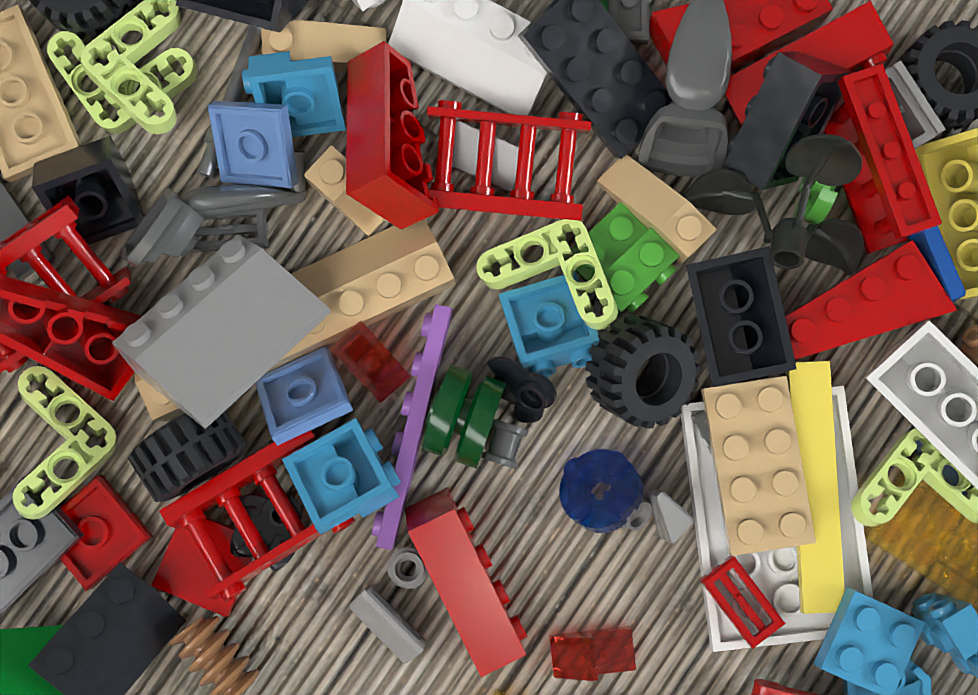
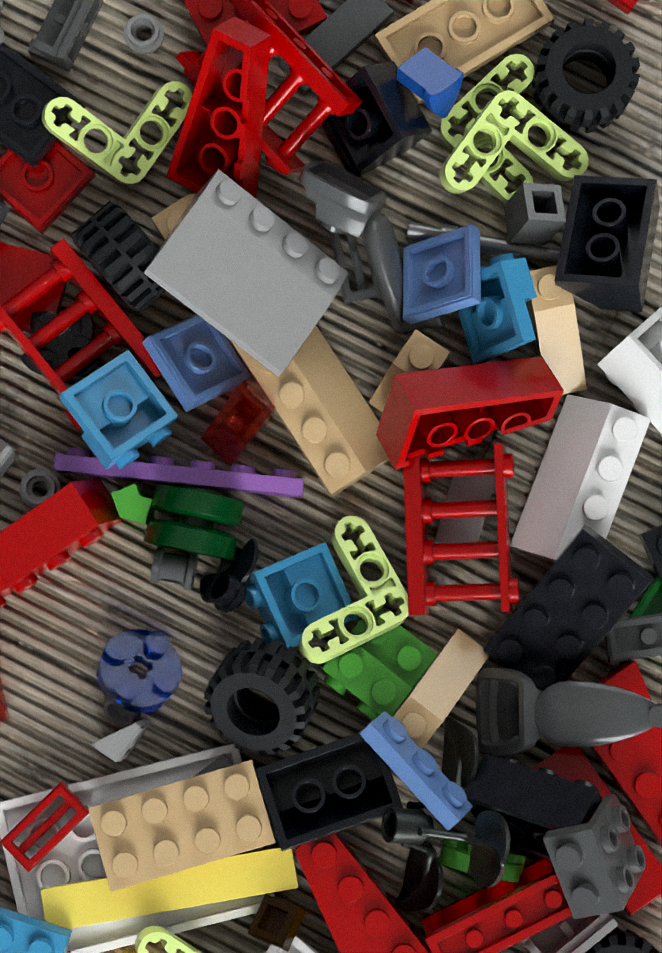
camera: 85 degrees right, 0 degrees up
(58, 126) = (431, 81): none -> tile
(207, 48) = (534, 213): none -> dark grey brick
(437, 475) = (133, 504): none -> bright green piece
(735, 227) = (417, 770): none -> medium blue plate
(849, 61) = (597, 860): none -> dark grey bracket
(861, 385) = (276, 922): none -> dark brown tile

